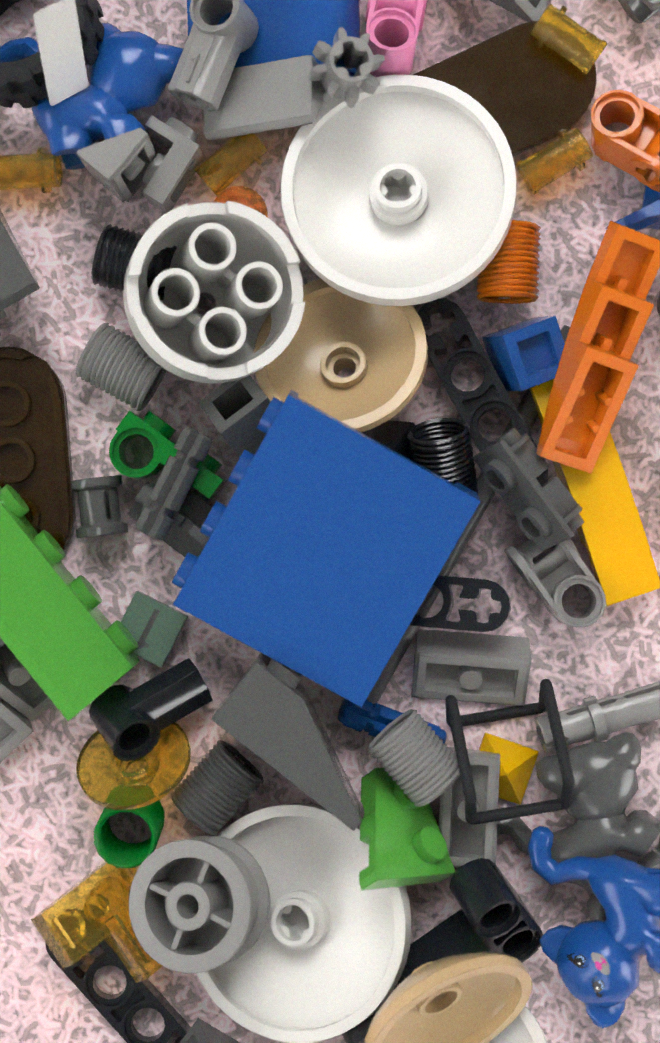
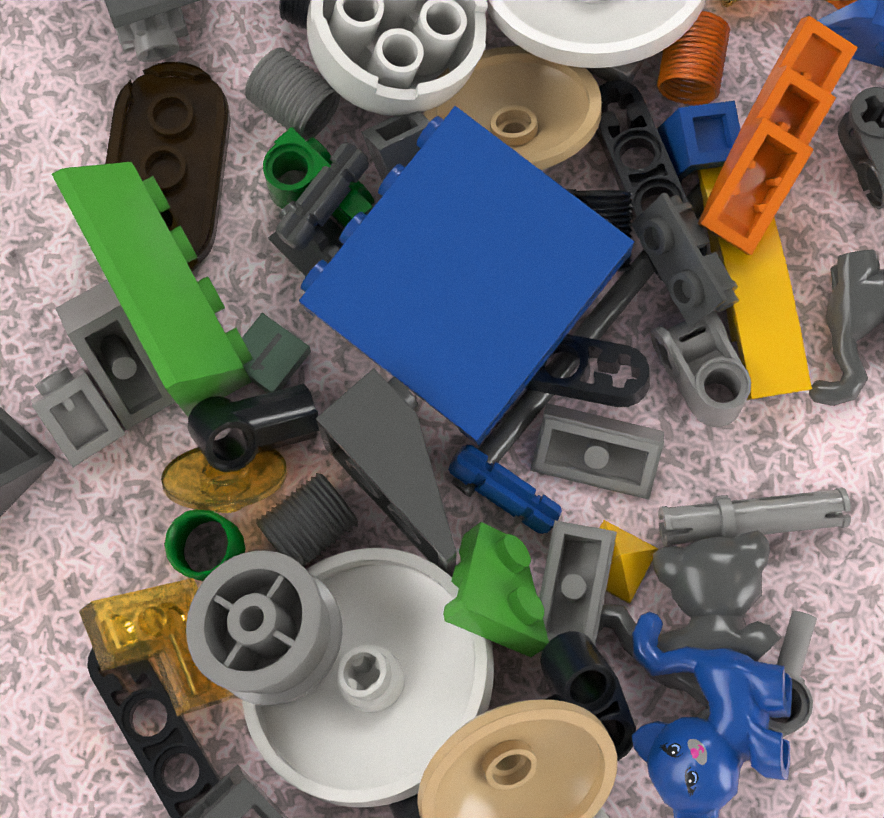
camera: 10 degrees right, 15 degrees down
(99, 506) = (241, 223): dark grey bush -> none
(415, 758) = (525, 508): light grey piece -> none
(548, 703) = (675, 494): black piece -> none

